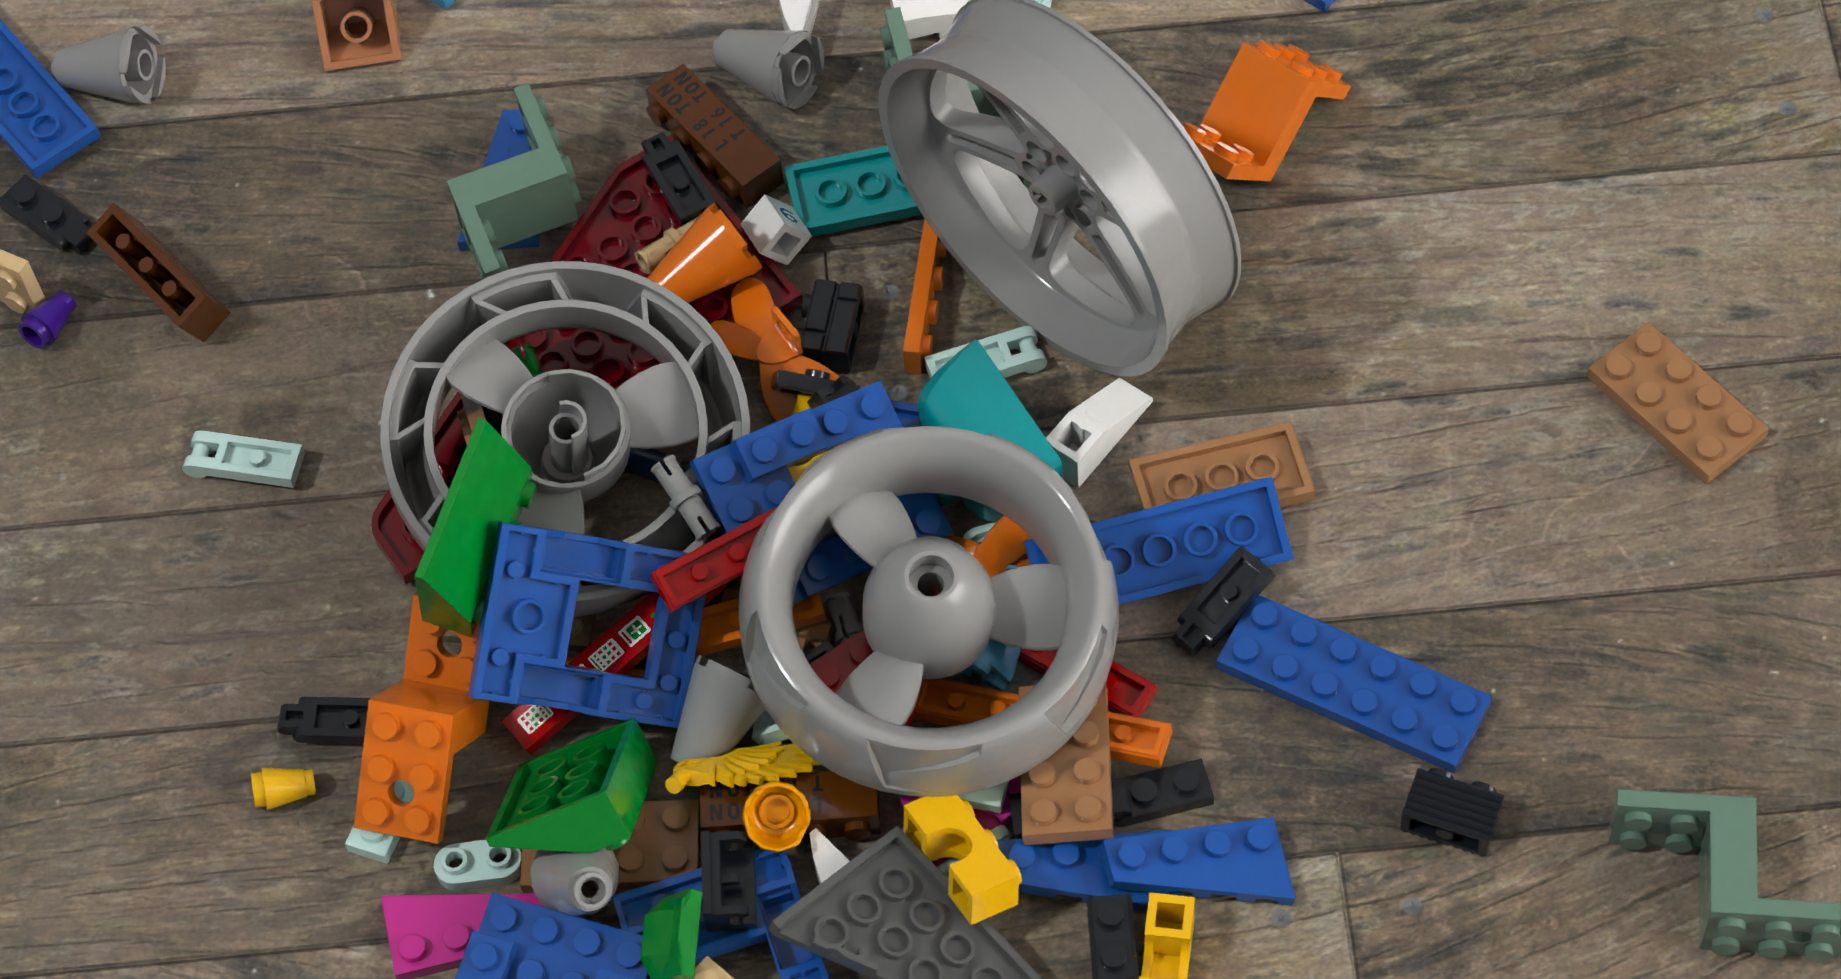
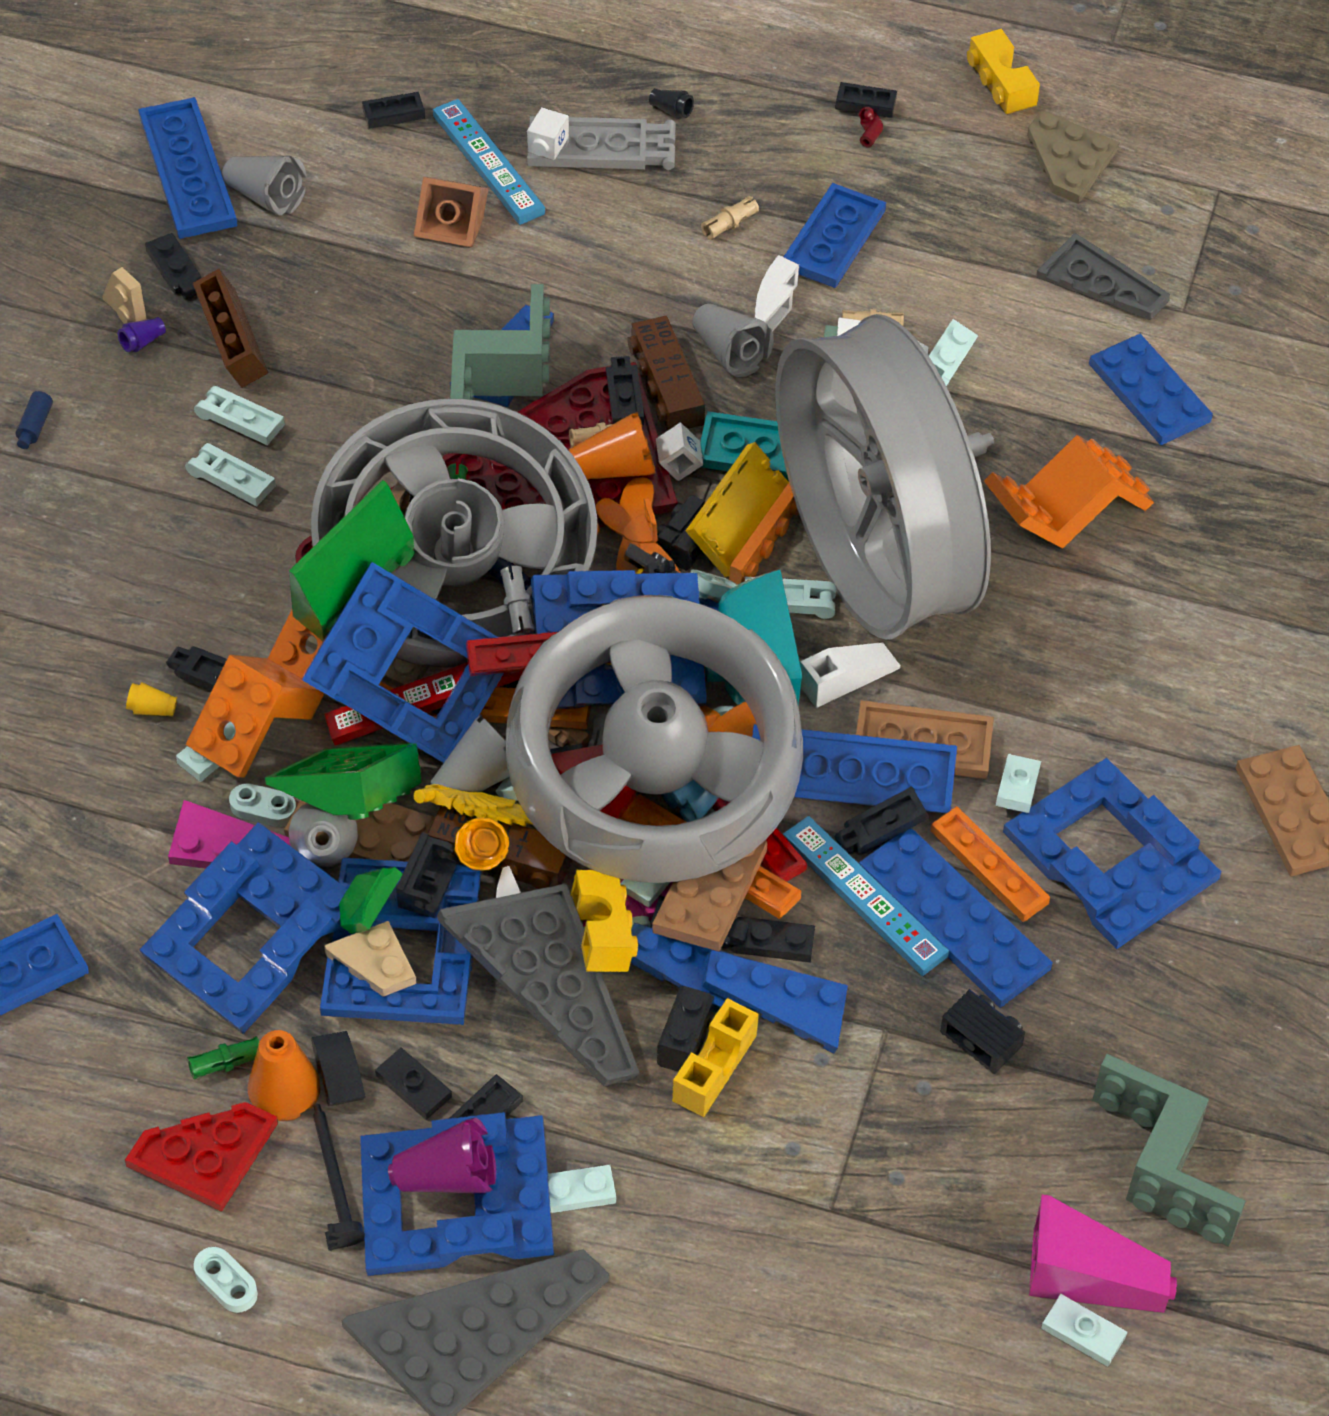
camera: 15 degrees right, 5 degrees down
(219, 379) = (240, 415): none -> light aqua plate
(878, 275) = (738, 508): none -> yellow piece
(898, 381) = (712, 585): none -> light aqua plate
(1242, 698) = (866, 896): none -> dark azure tile
(1354, 492) = (1018, 783): none -> light aqua plate
(1366, 603) = (990, 864): none -> orange plate
(1549, 559) = (1139, 887): none -> blue piece

